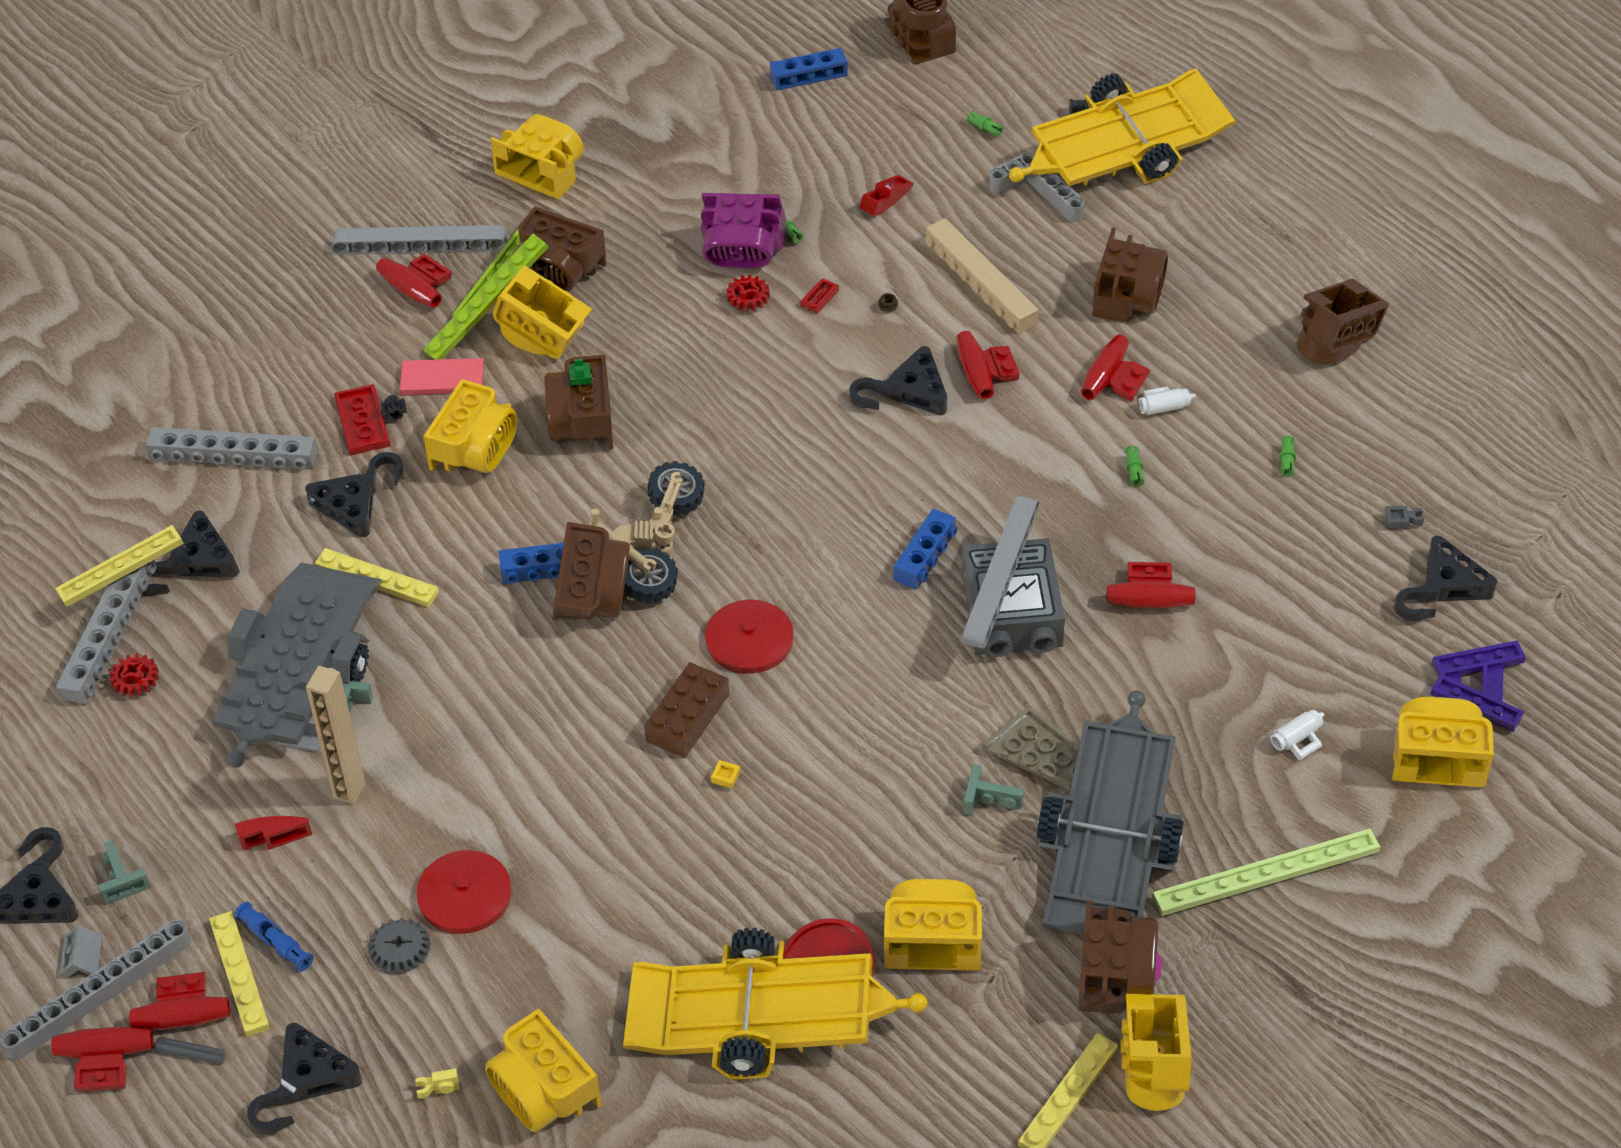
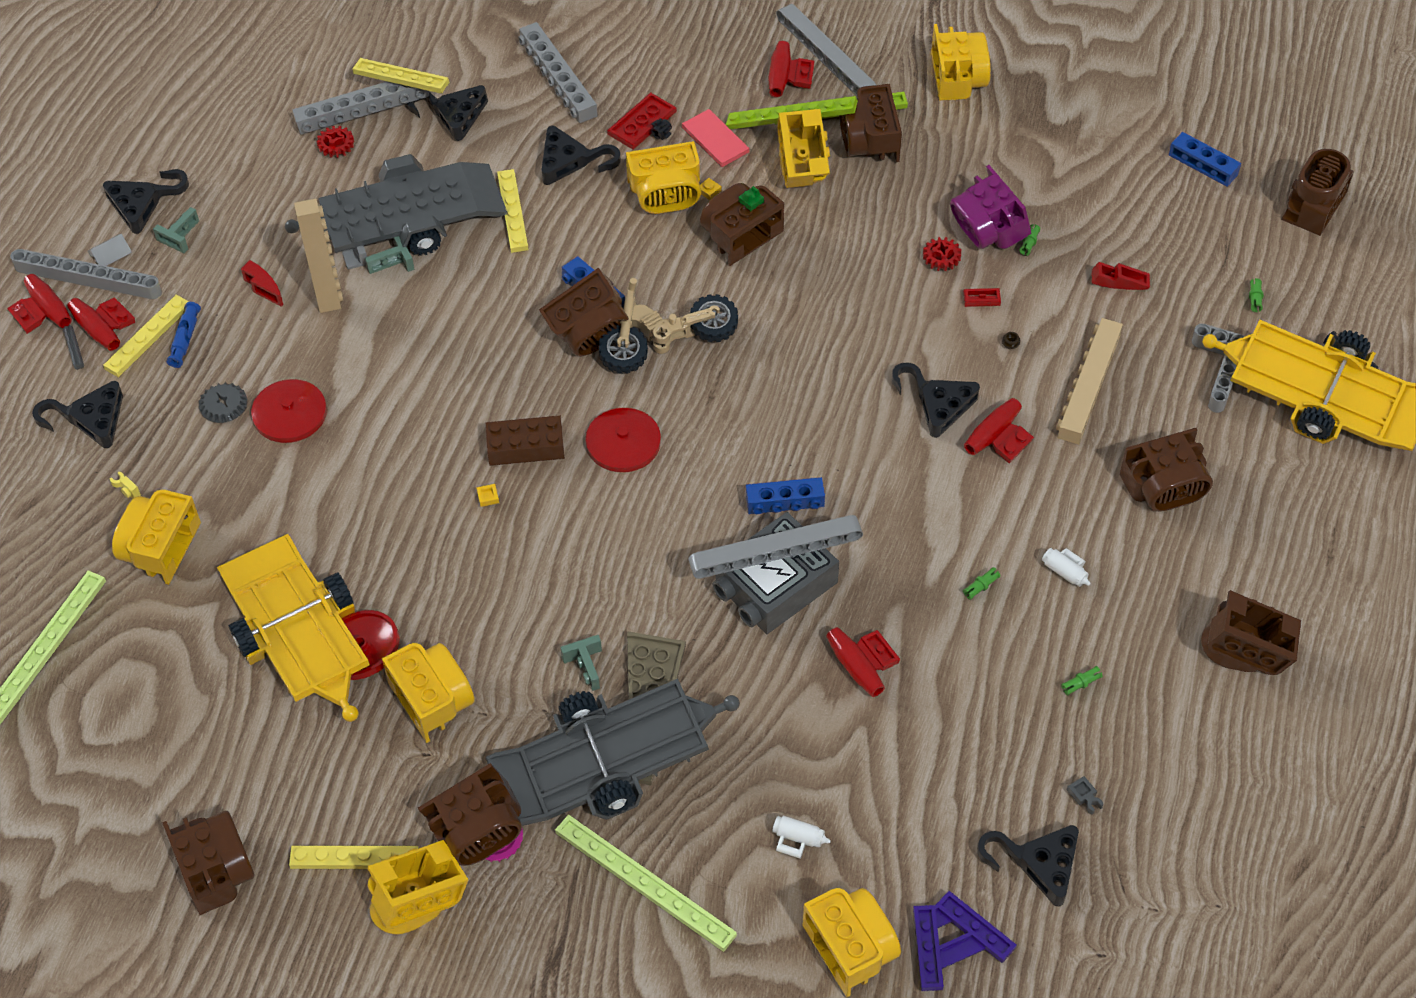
camera: 55 degrees right, 5 degrees up
(1111, 370) = (1067, 518): red plate -> none

